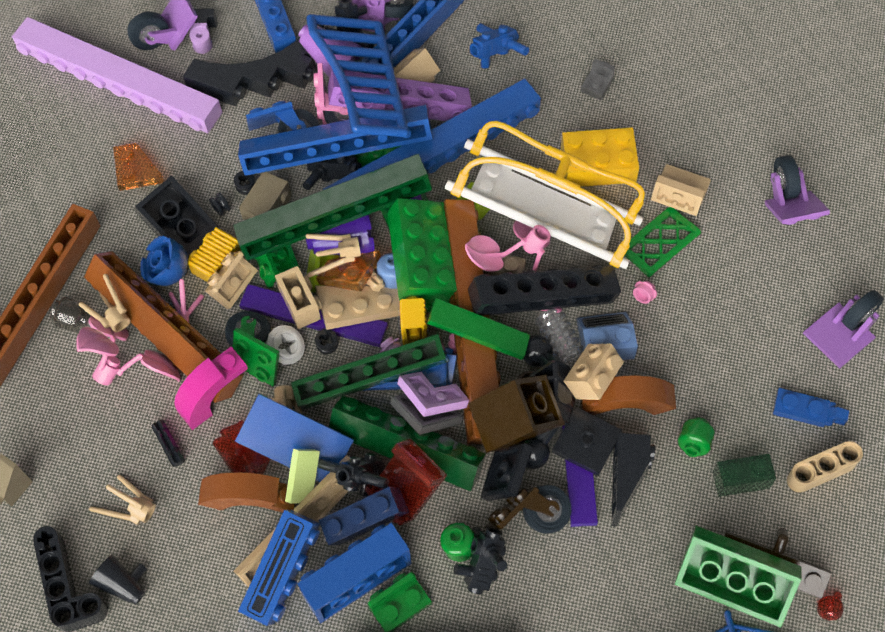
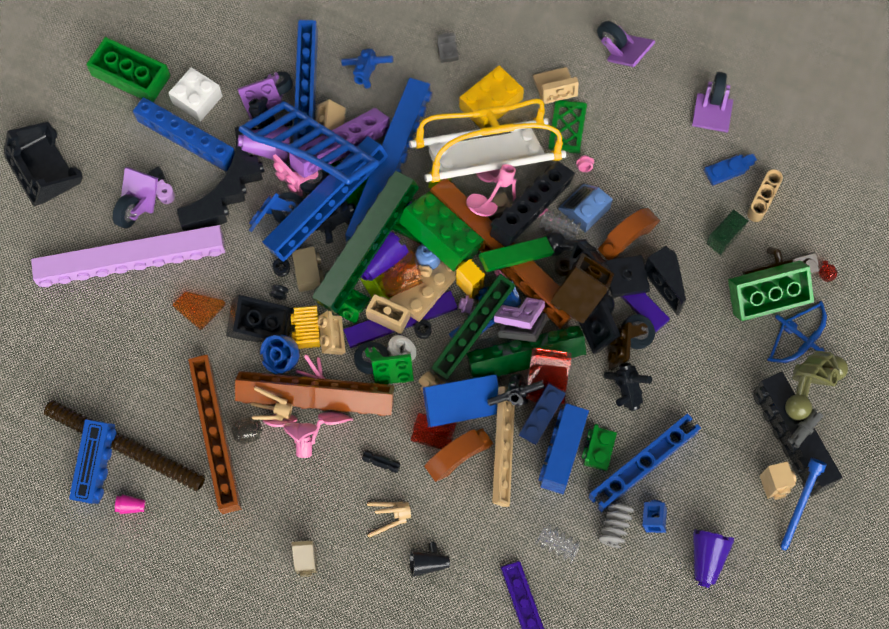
camera: 40 degrees left, 5 degrees up
(63, 577) = (392, 586): black beam -> none
(204, 383) = (381, 408): dark pink arch -> none
(279, 568) = (519, 479): blue brick -> none
(302, 474) = (484, 417): yellowish green tile -> none
(347, 248) = (396, 262): tan plant -> none
(457, 541) = (605, 387): green head -> none
(593, 371) = (603, 231): tan brick -> none
(696, 436) = (684, 229): green head -> none

